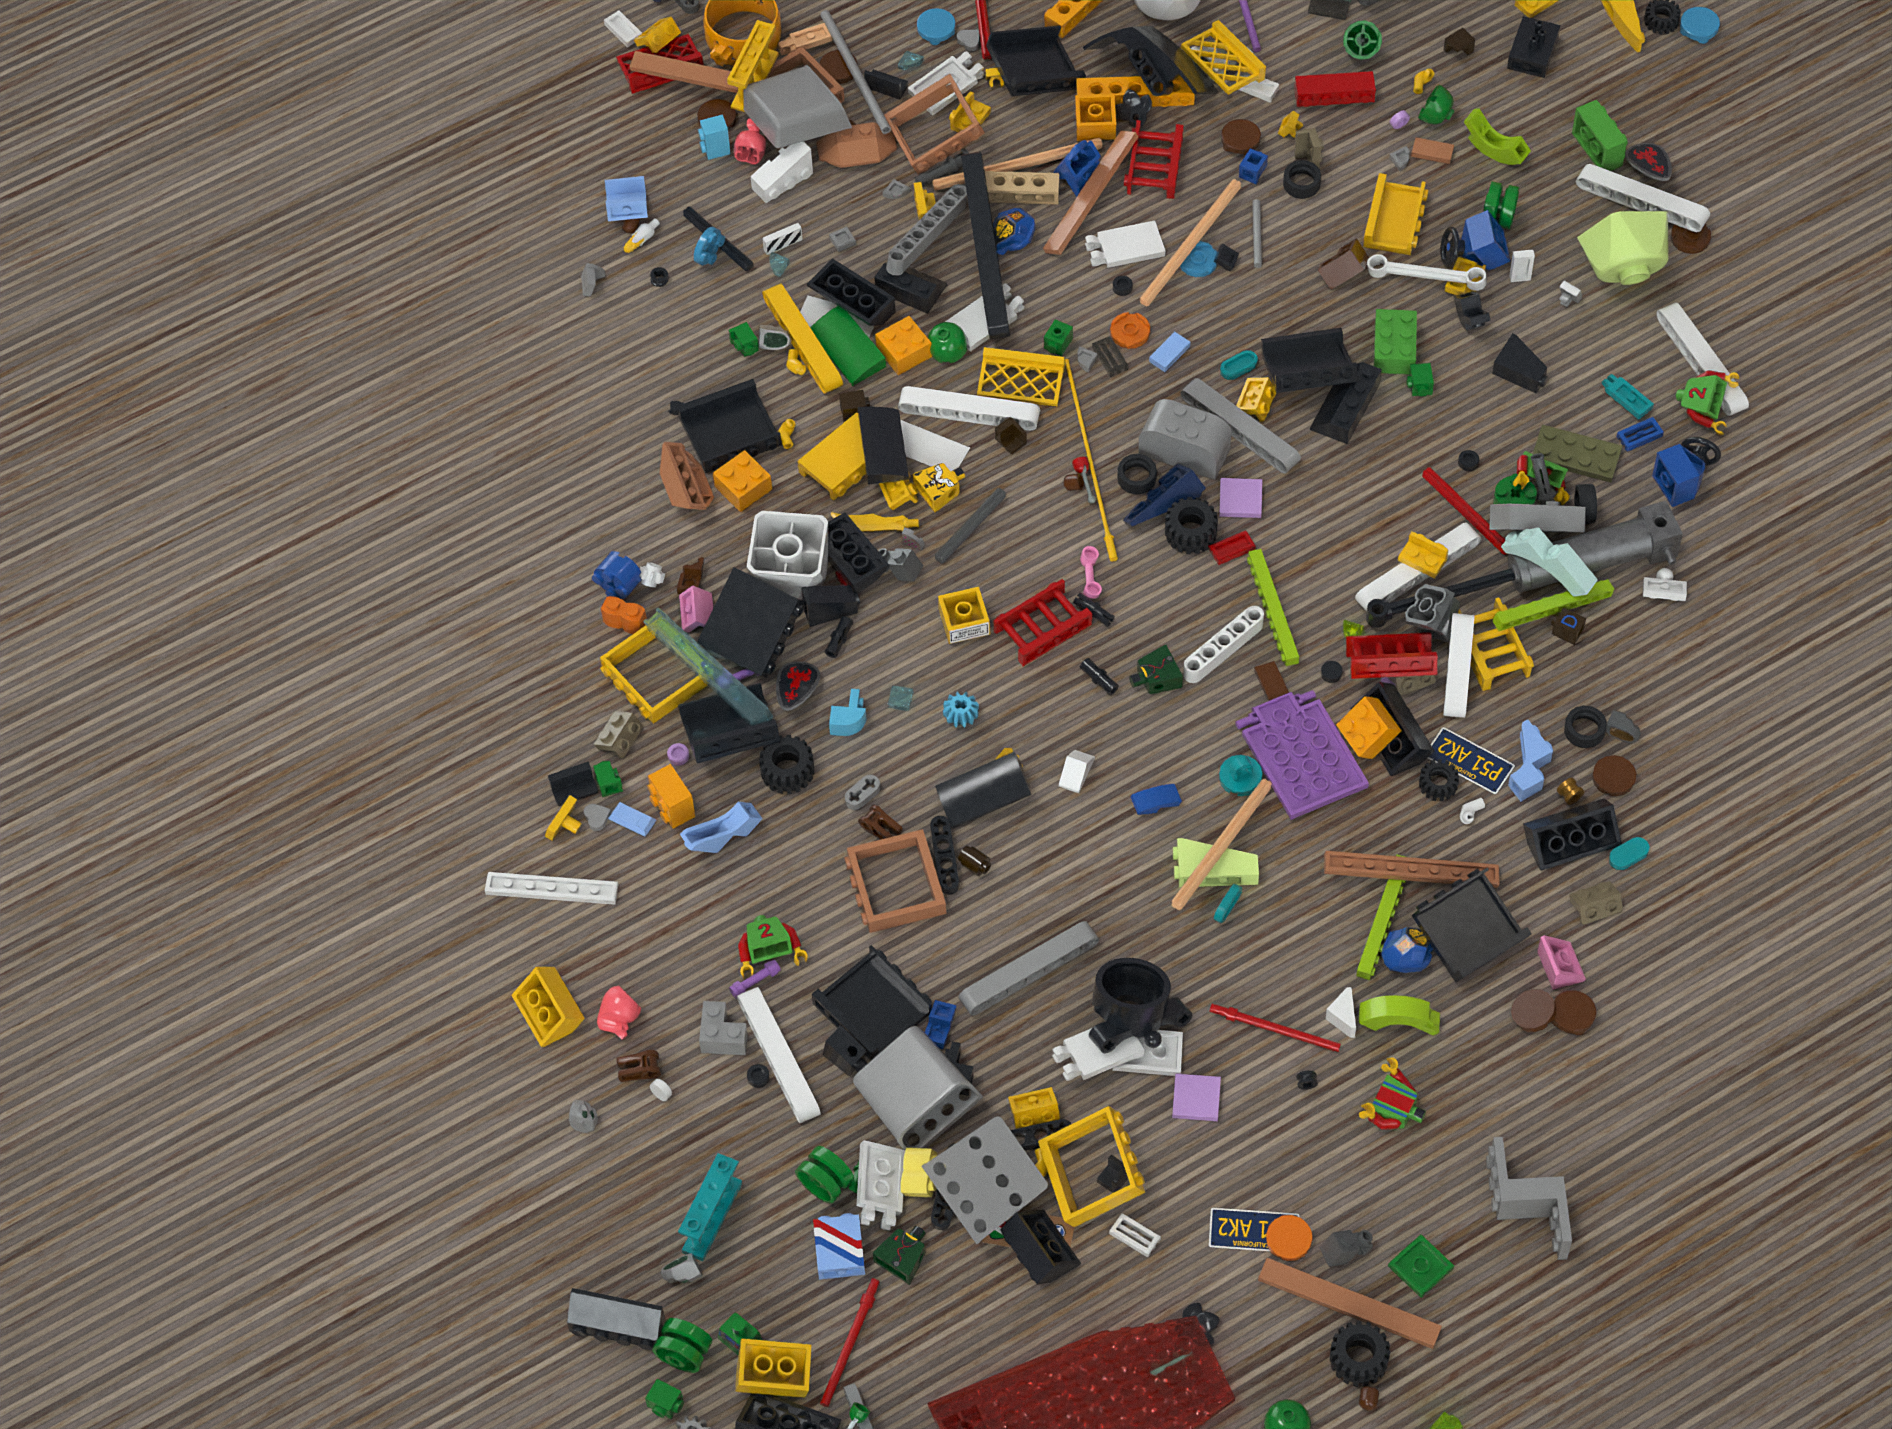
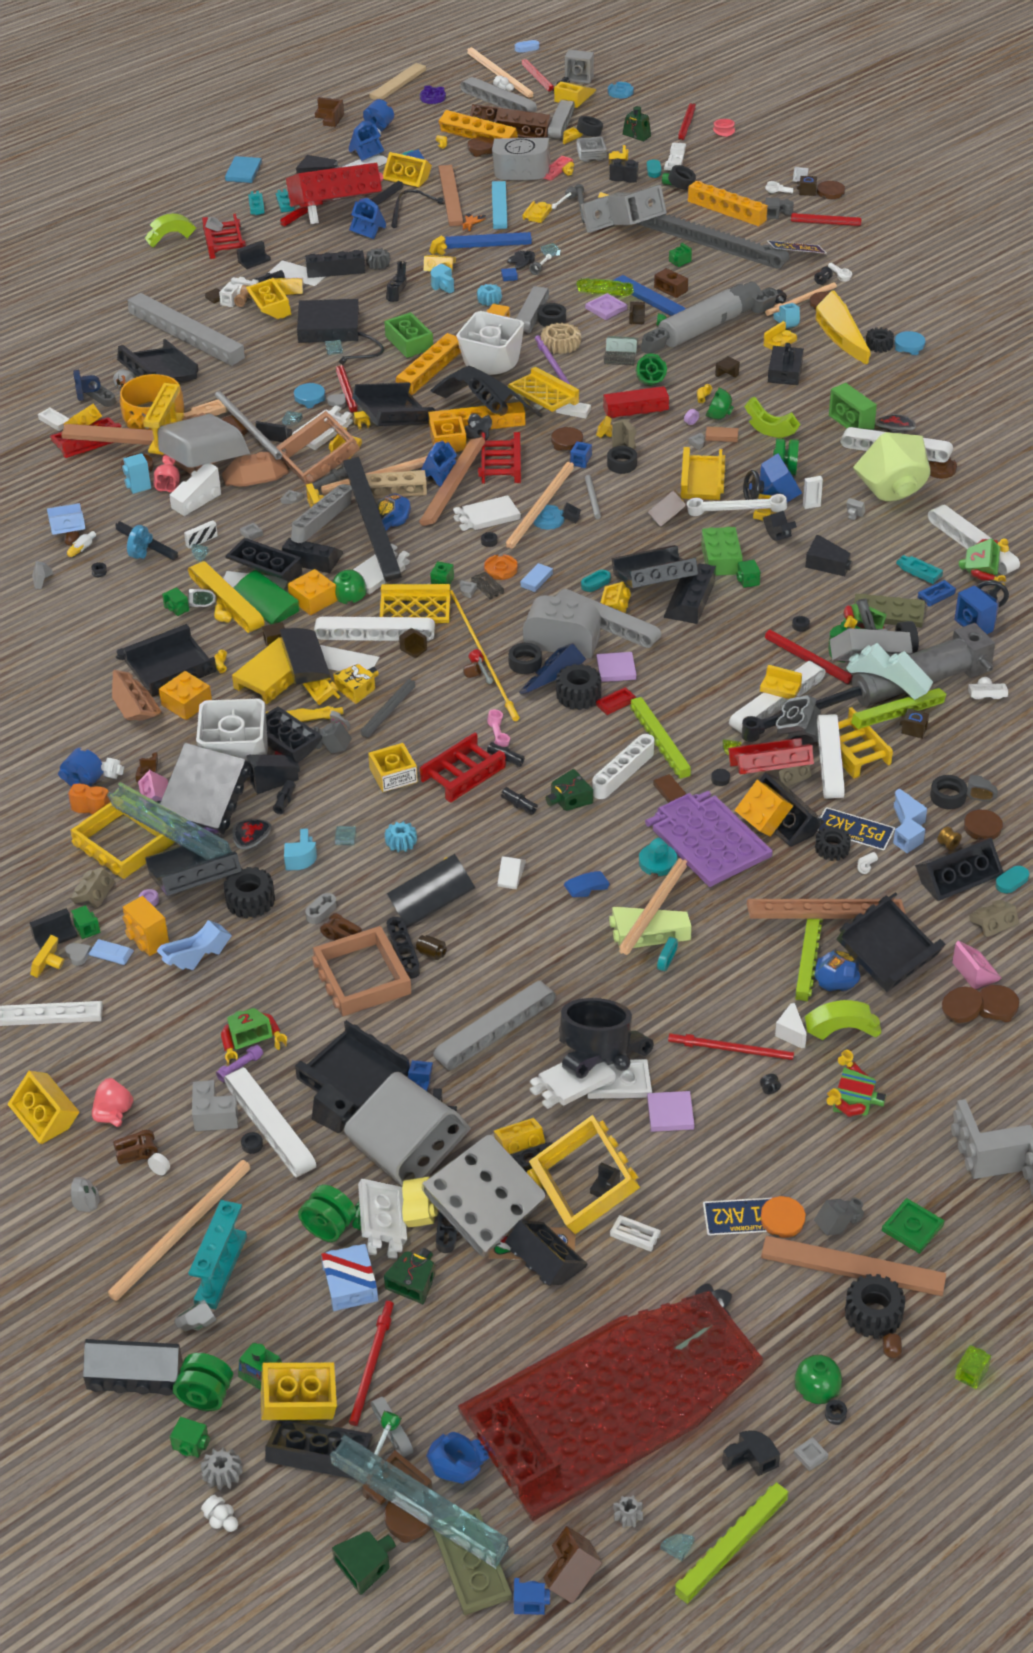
camera: 10 degrees left, 15 degrees down
(675, 1167) = (178, 1230): none -> light nougat axle

